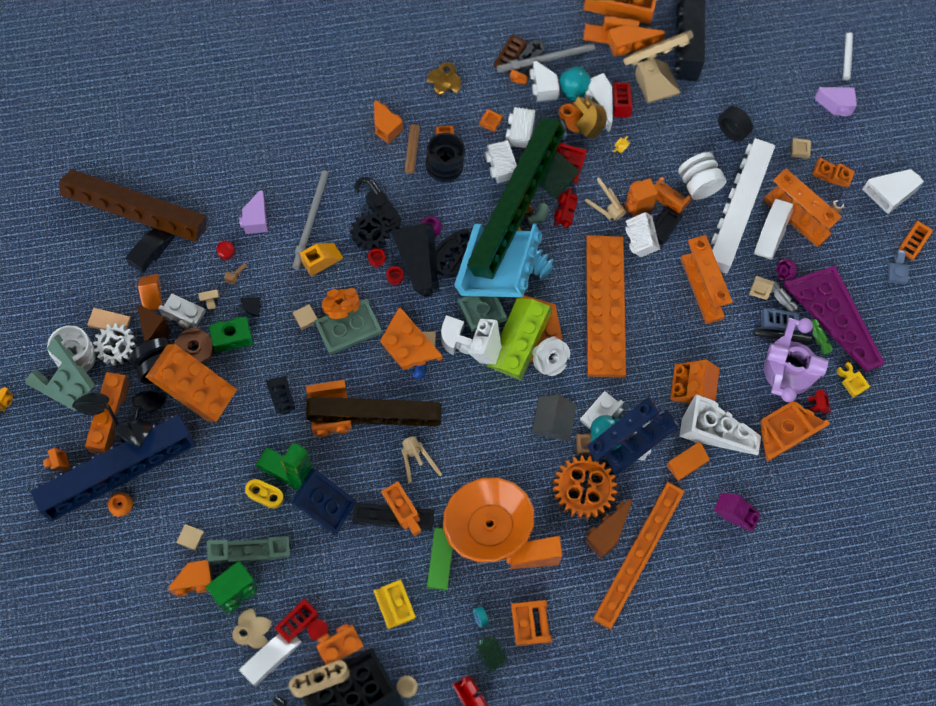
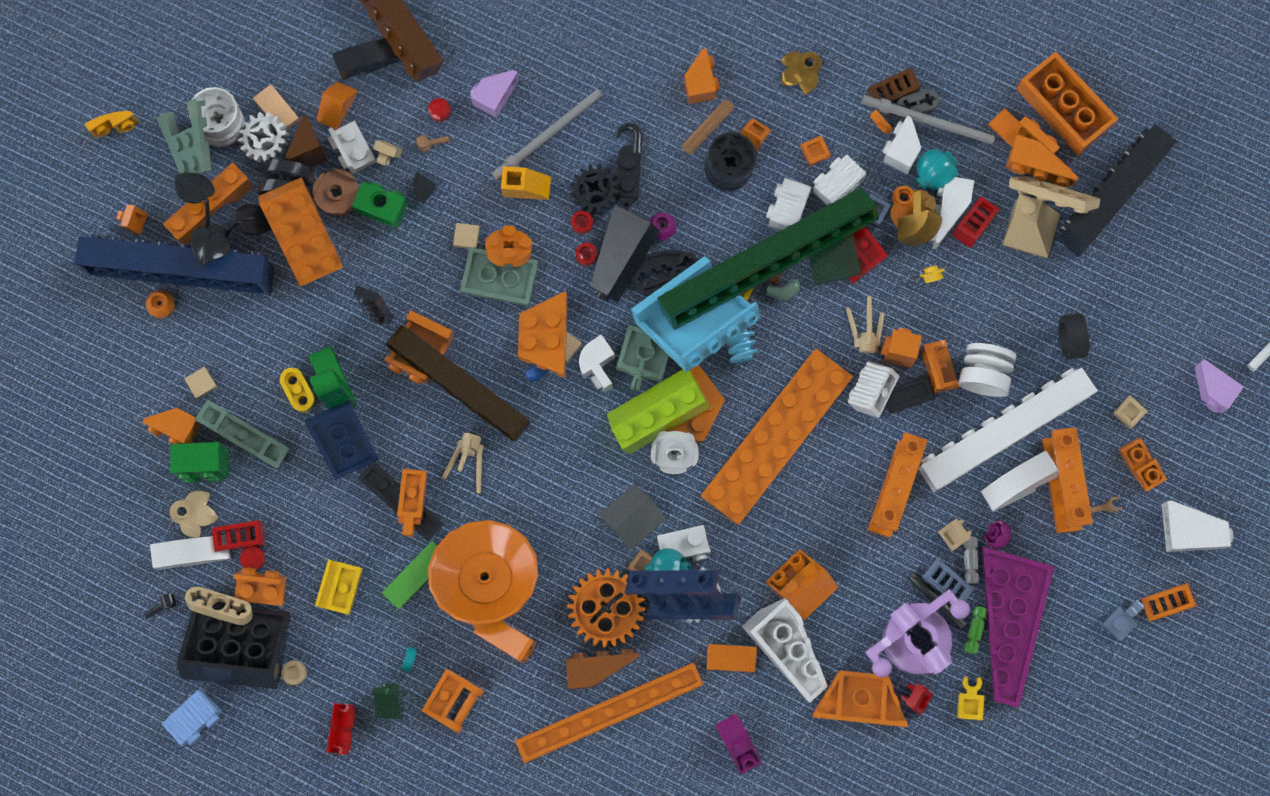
camera: 45 degrees right, 10 degrees up
(486, 342) = (618, 391): white slope -> none
(567, 201) = (823, 297): red hinge -> none

